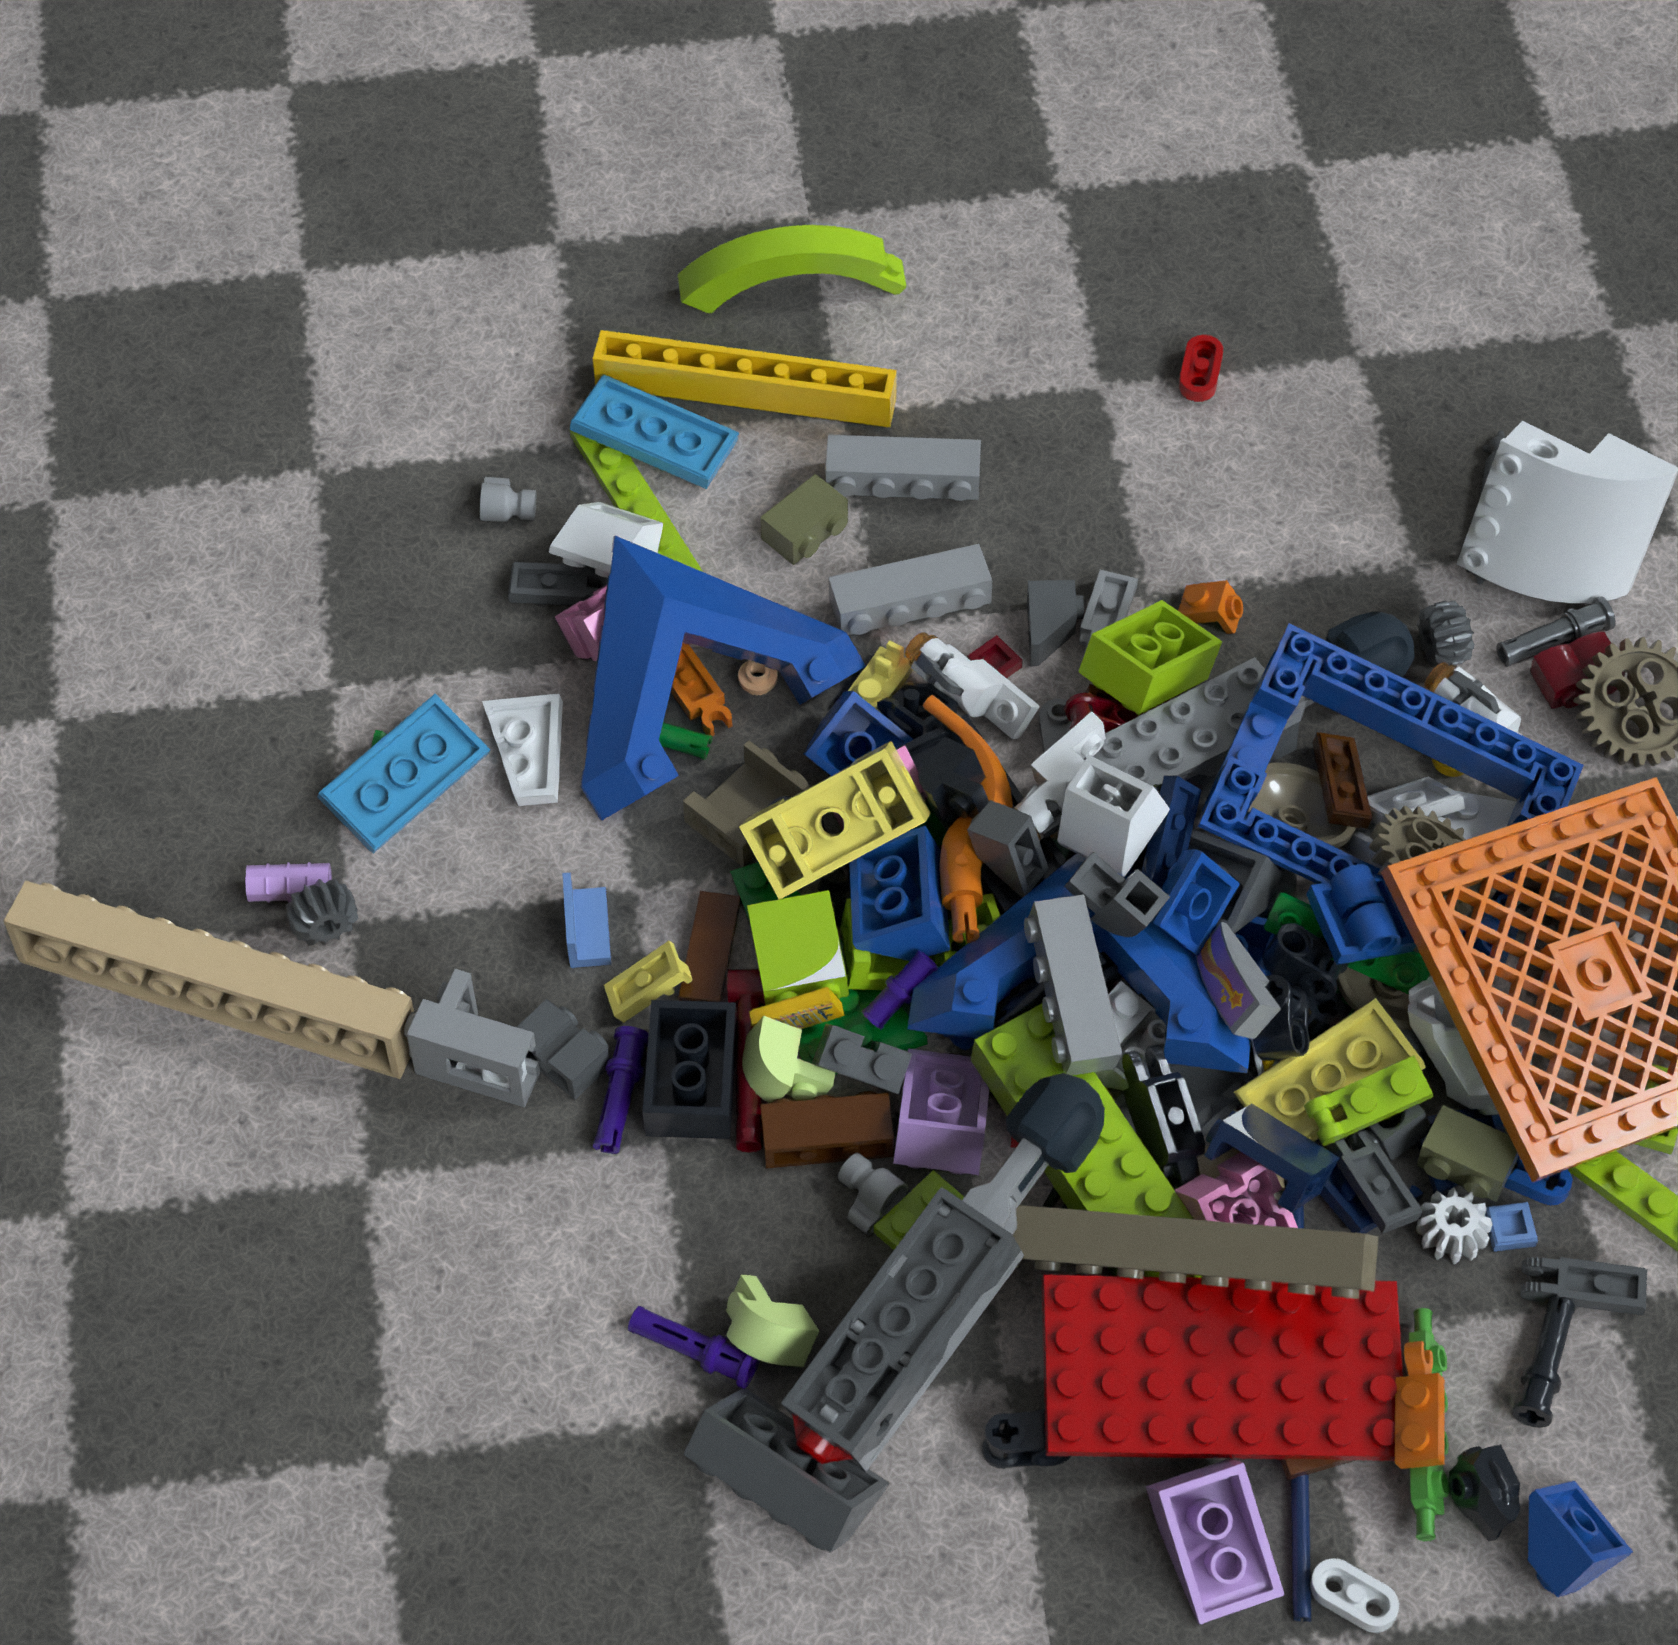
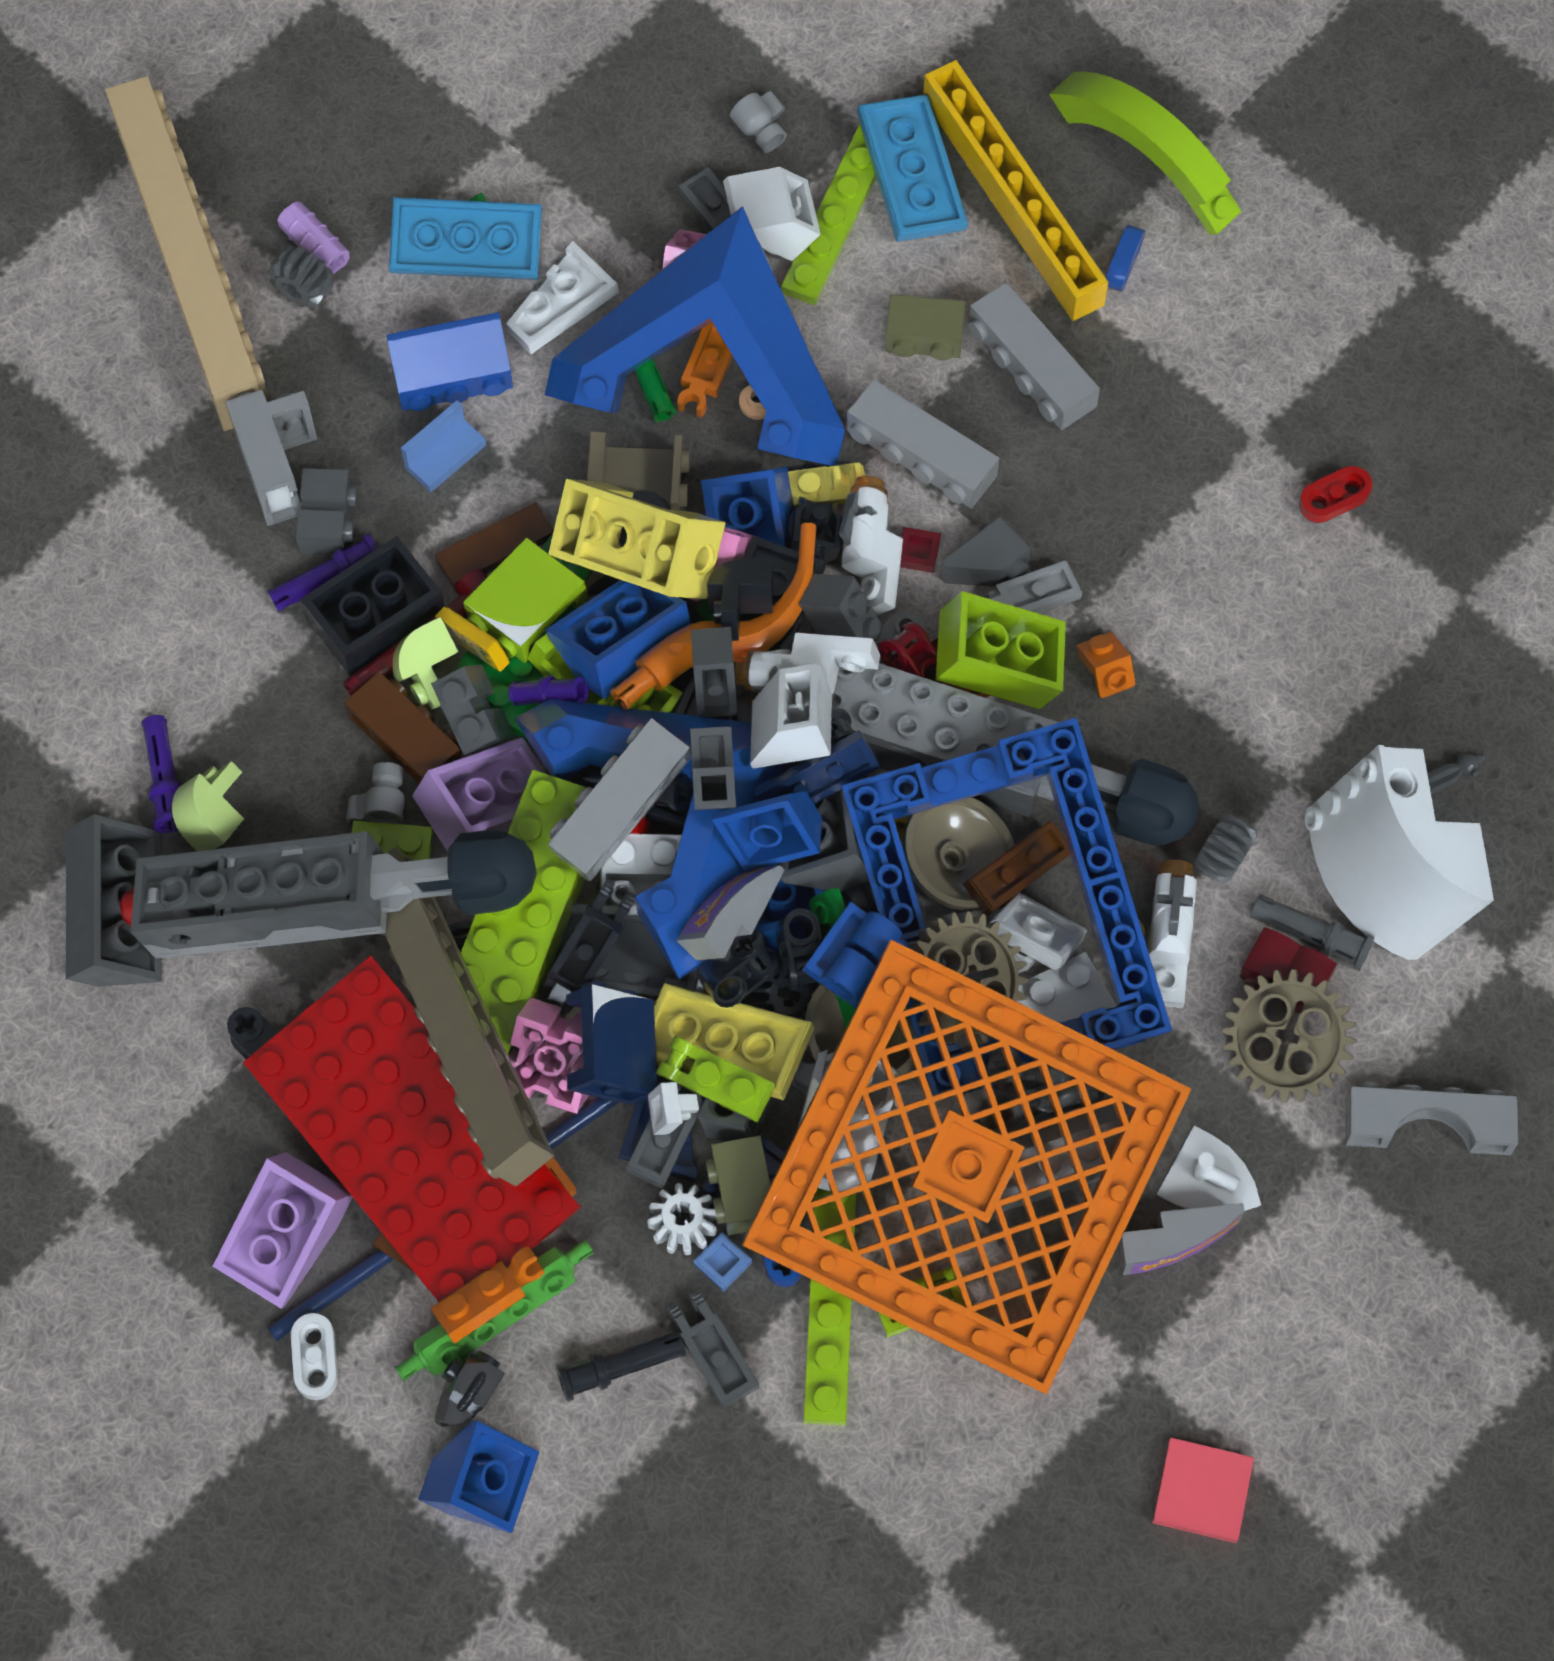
camera: 50 degrees right, 10 degrees up
(517, 858) = (450, 362): none -> slope
(646, 981) = (424, 524): light yellow plate -> none
(868, 348) = (1125, 257): none -> blue beam
(1018, 736) = (839, 608): none -> dark grey brick
(1365, 1153) = (670, 1108): none -> white tile

